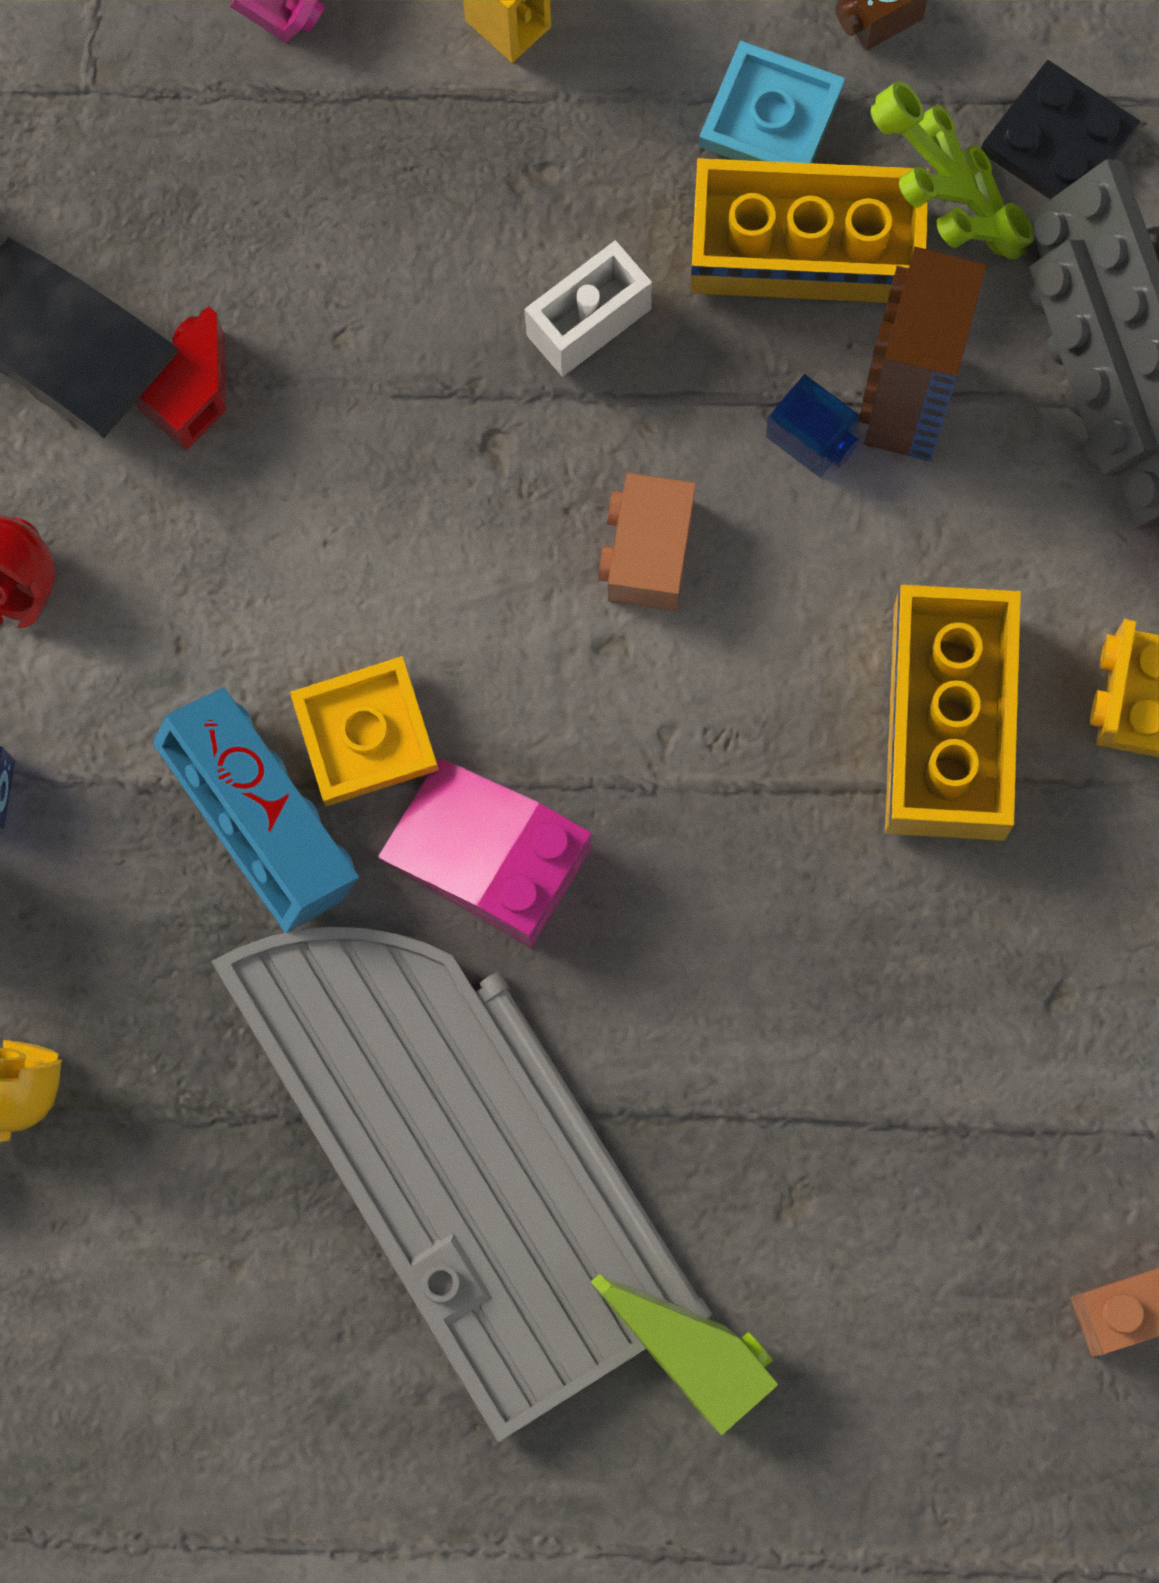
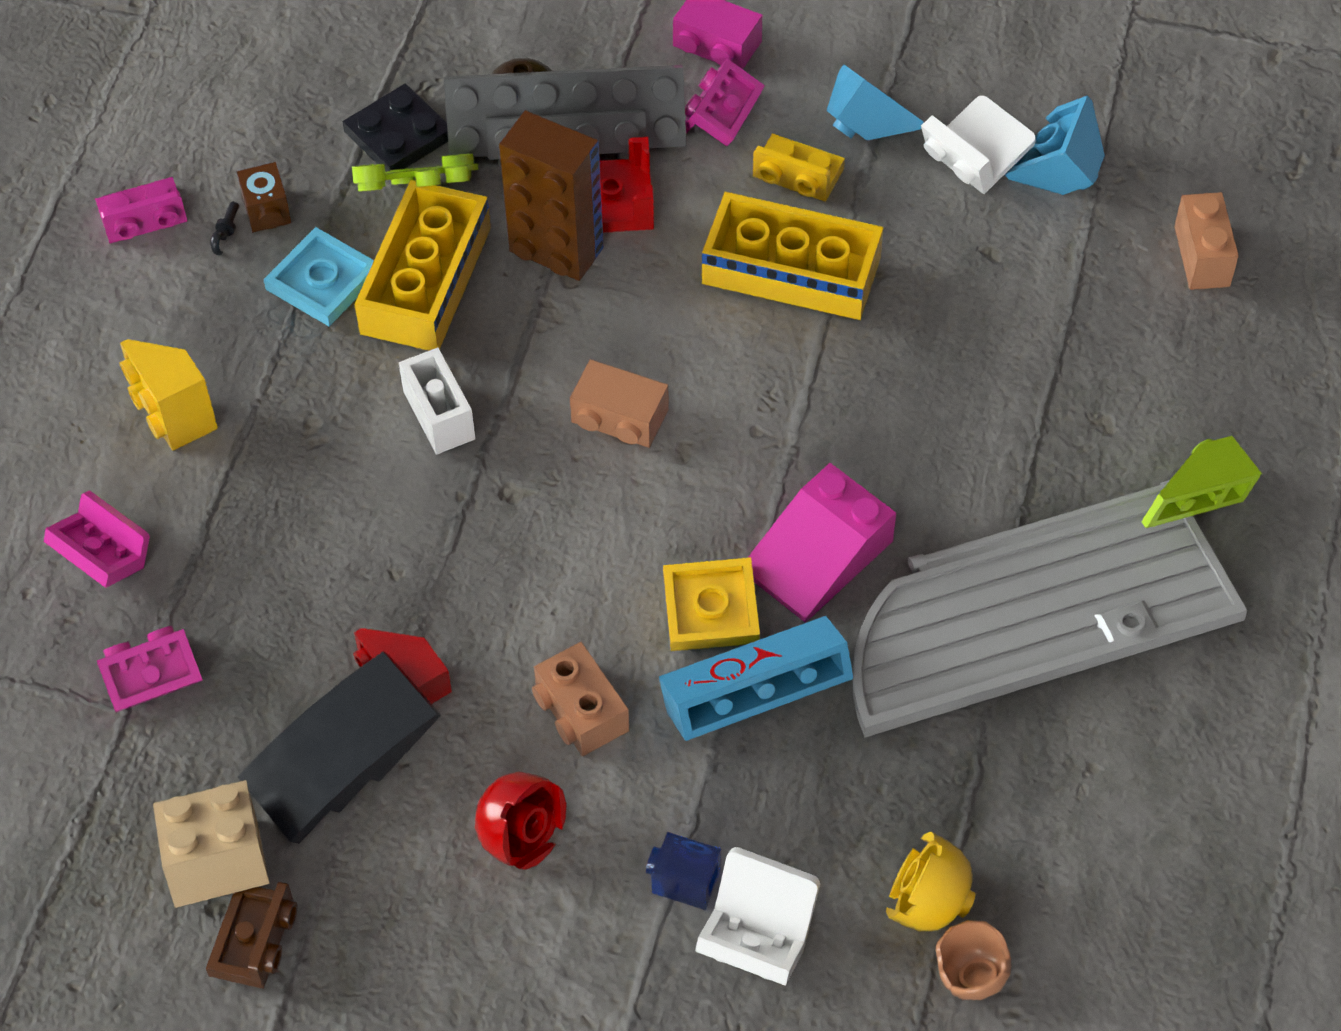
camera: 80 degrees left, 20 degrees down
(130, 90) = (148, 669): none -> dark pink bracket
(187, 602) = (581, 699): none -> nougat brick
(814, 427) = (563, 296): clear blue brick -> none
(1021, 443) = (628, 190): none -> red panel

